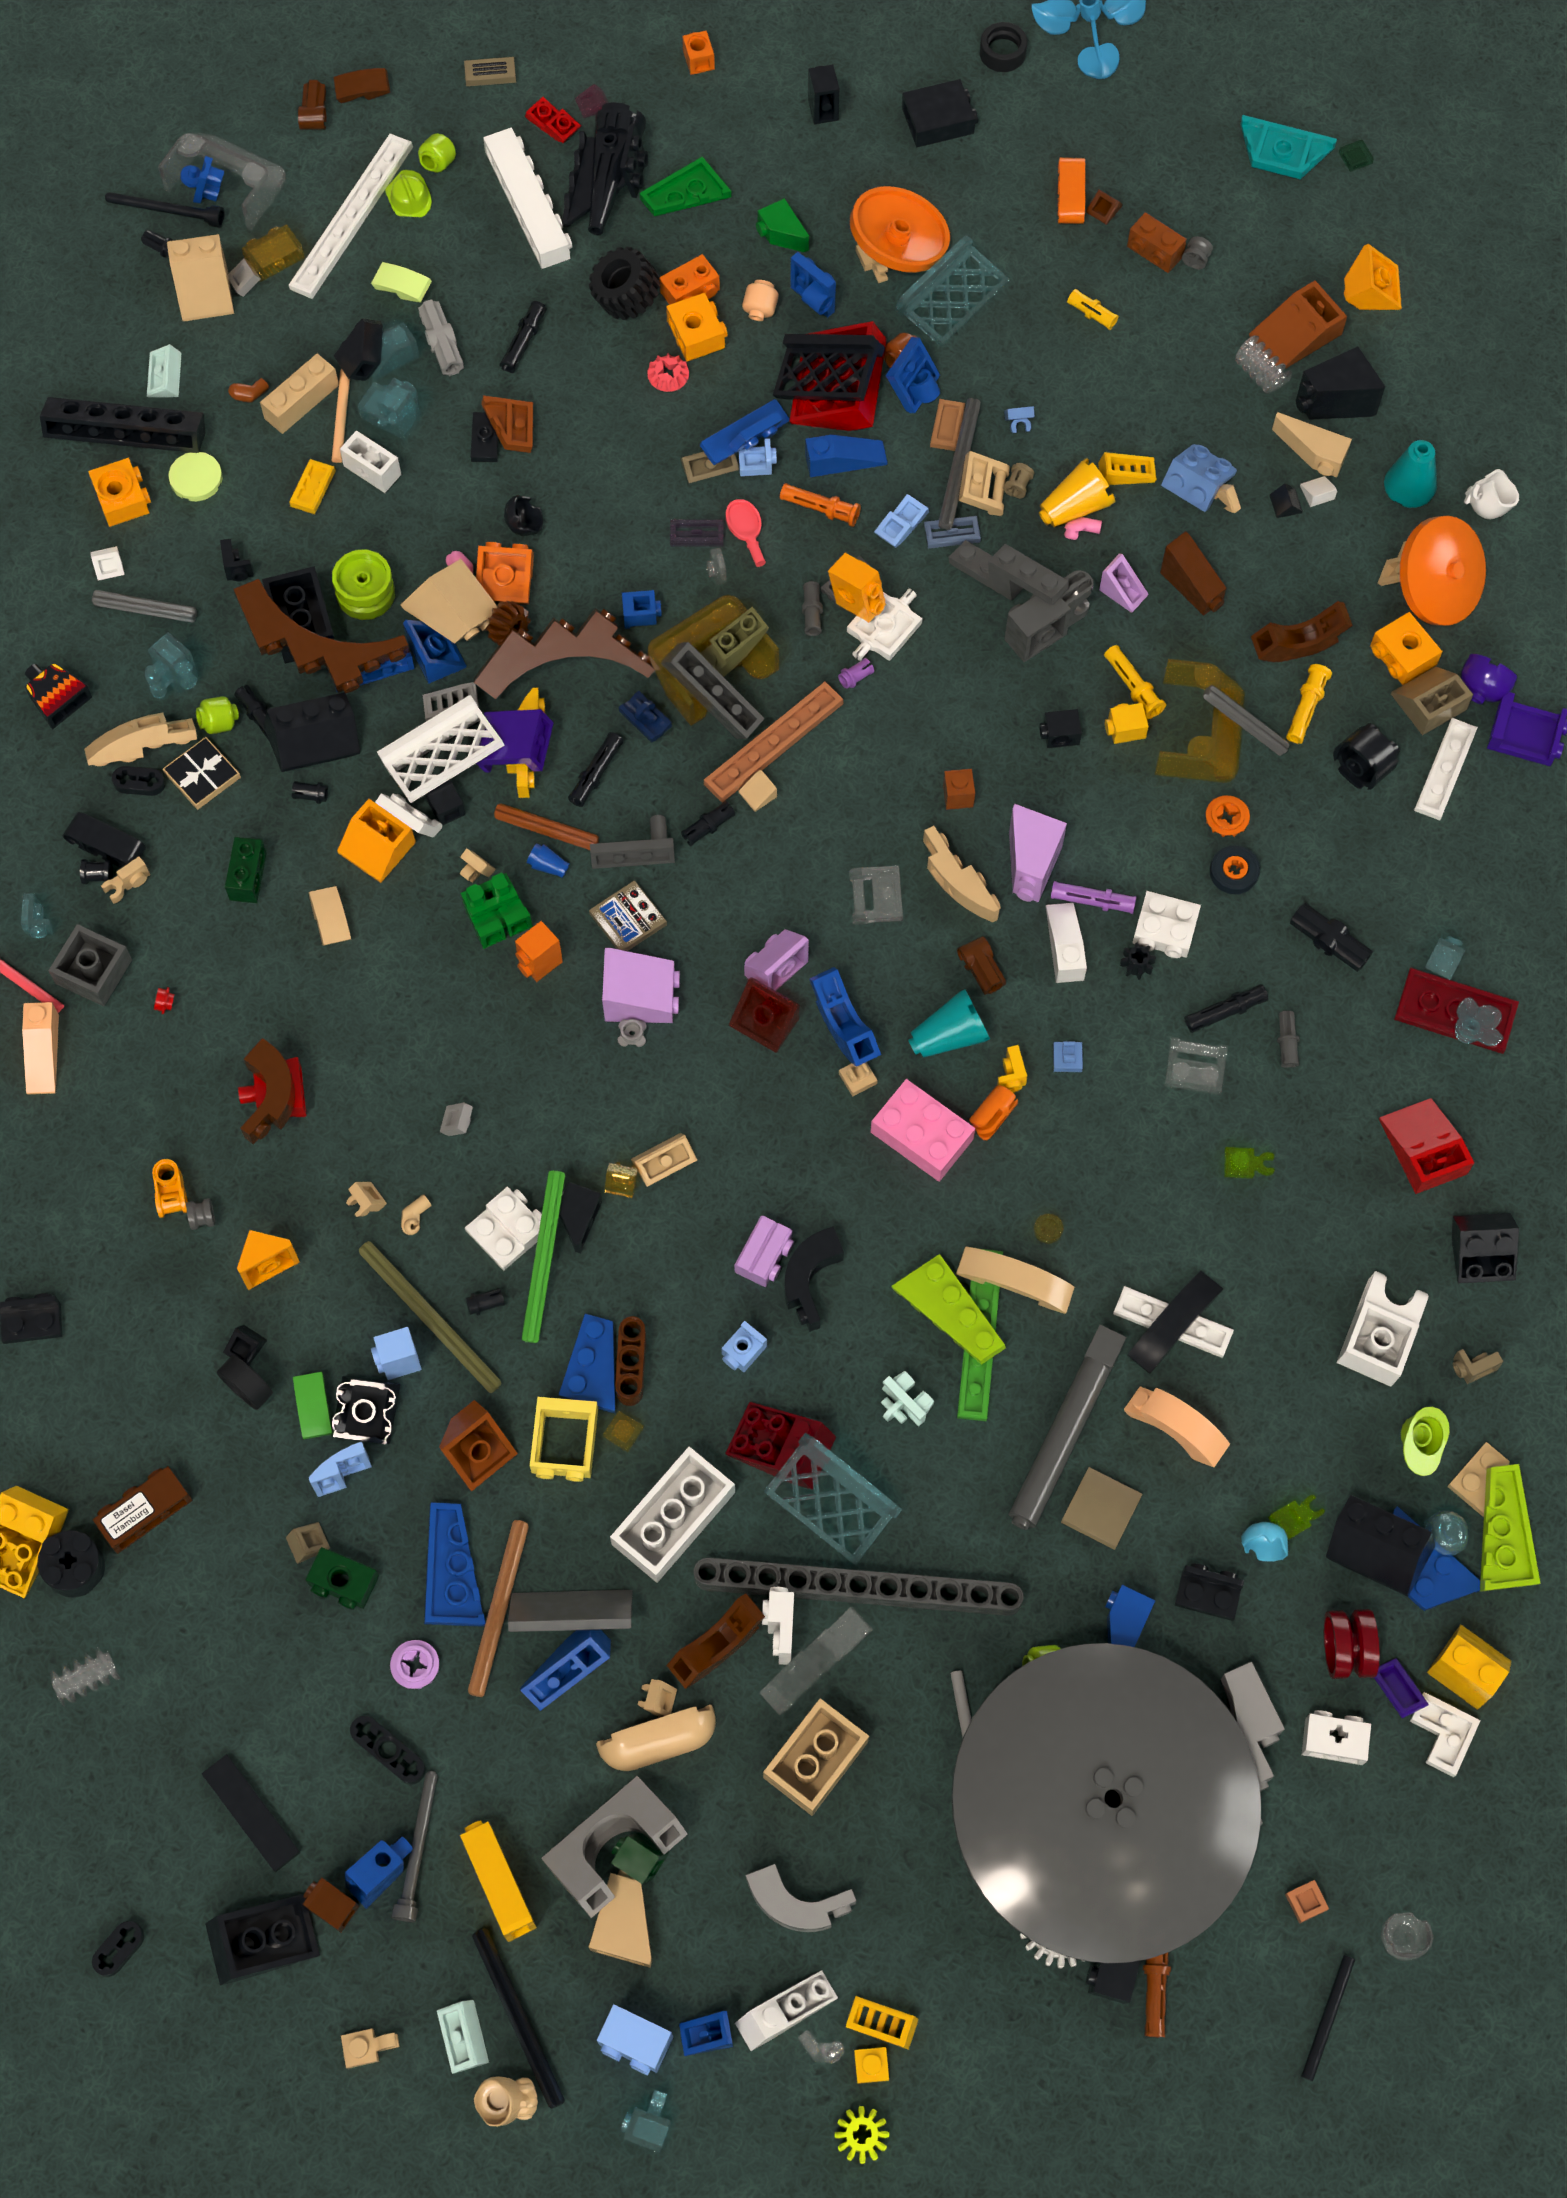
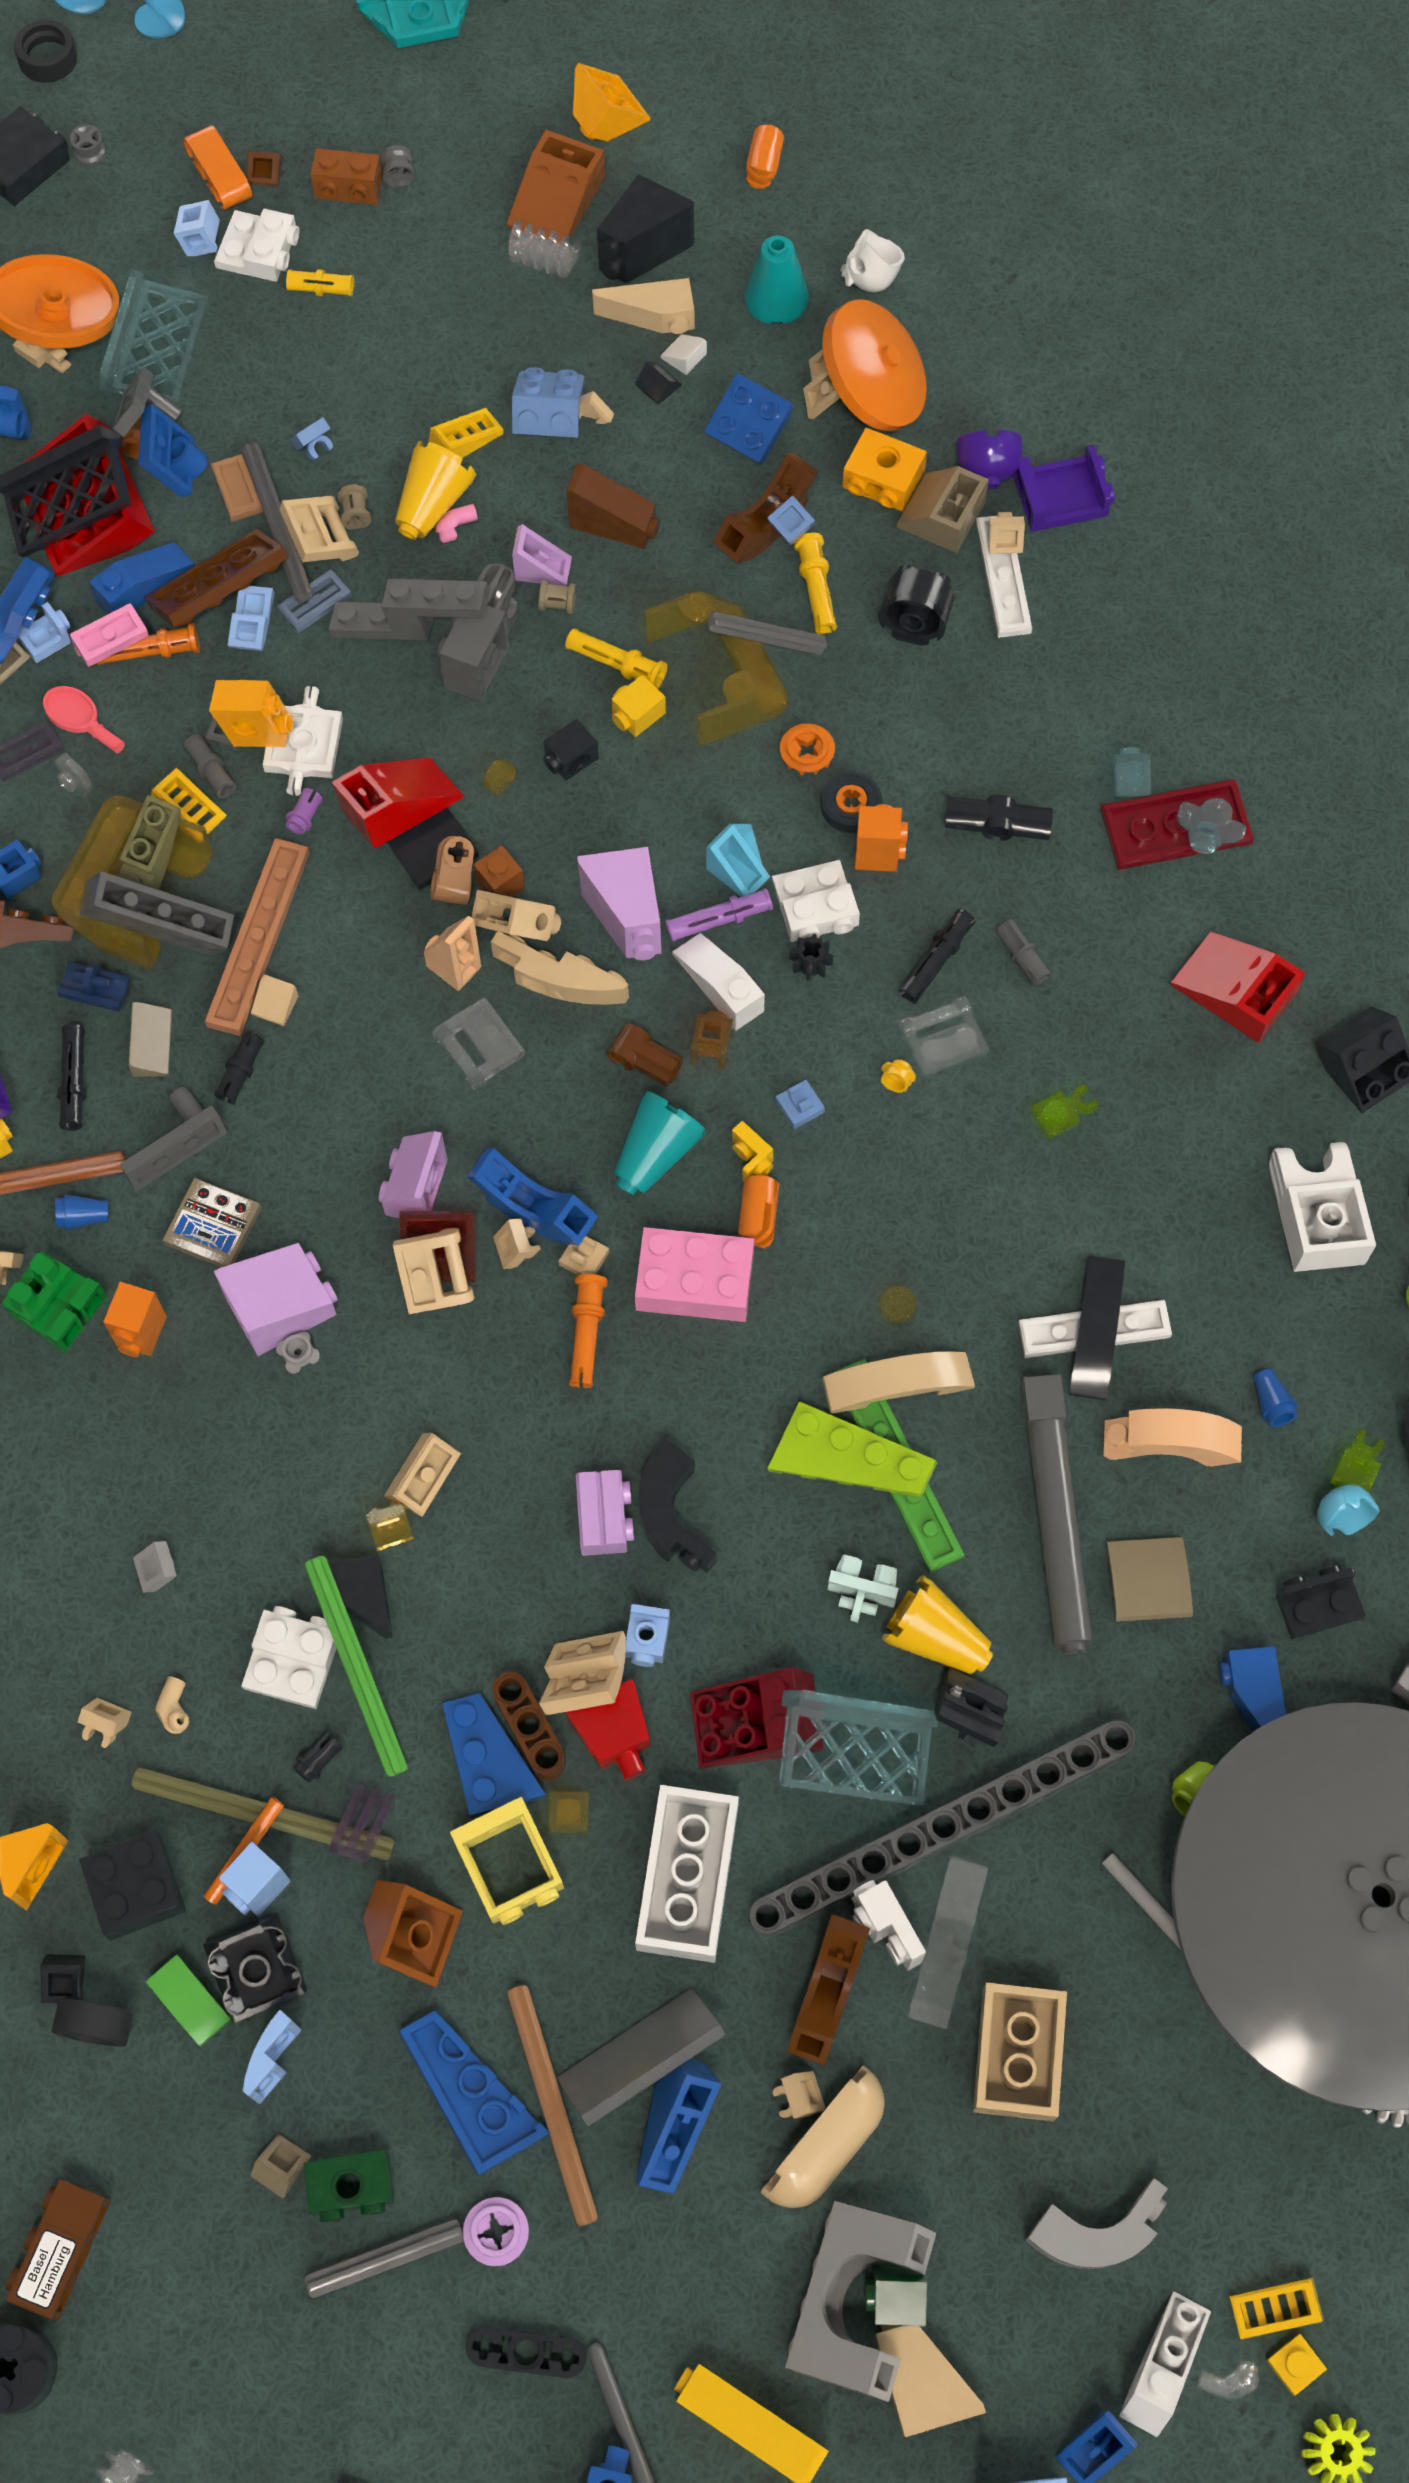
camera: 30 degrees left, 0 degrees up
(321, 1312) = (132, 1885): none -> black brick
(336, 1638) = (384, 2258): none -> dark grey axle
(414, 1327) = (253, 1835): none -> orange bar
(503, 1348) = (371, 1799): none -> clear purple tile
(660, 772) = (149, 1040): none -> slope
(684, 1394) = (614, 1731): none -> red torso
(686, 1347) = (584, 1673): none -> tan slope
(741, 1028) = (421, 1274): none -> tan plate
(778, 606) = (178, 779): none -> yellow slope
(797, 482) = (108, 635): none -> bright pink panel
(815, 1042) = (513, 1243): none -> tan tile
(836, 1115) = (588, 1313): none -> orange pin
(894, 480) = (216, 578): none -> reddish brown plate
(895, 826) = (454, 953): none -> light nougat slope
(913, 1516) = (971, 1707): none -> black piece
(915, 325) = (136, 398): none -> dark grey piece
(921, 696) = (394, 796): none -> red slope
(926, 772) = (452, 879): none -> medium nougat piece
(927, 742) = (418, 846): none -> black tile
(936, 1457) = (937, 1630): none -> yellow cone
(956, 826) = (526, 916): none -> tan torso
(996, 125) = (90, 138): none -> dark grey wheel
(1002, 721) = (499, 776): none -> clear yellow tile
(1030, 227) = (197, 228): none -> light blue brick
(1034, 988) = (715, 1023): none -> clear orange window
(1066, 259) = (258, 244): none -> white plate
(1119, 617) = (557, 596): none -> dark tan bush
(1130, 865) = (736, 859): none -> medium azure slope
(1146, 1074) = (897, 1076): none -> yellow plate
(1235, 905) = (880, 838): none -> orange brick
(1265, 1441) = (1275, 1401): none -> blue cone
(1314, 650) = (791, 520): none -> medium blue tile
(1333, 562) = (749, 418): none -> blue plate
(1463, 740) = (1006, 534): none -> tan tile
(1464, 377) = (764, 156): none -> orange arm

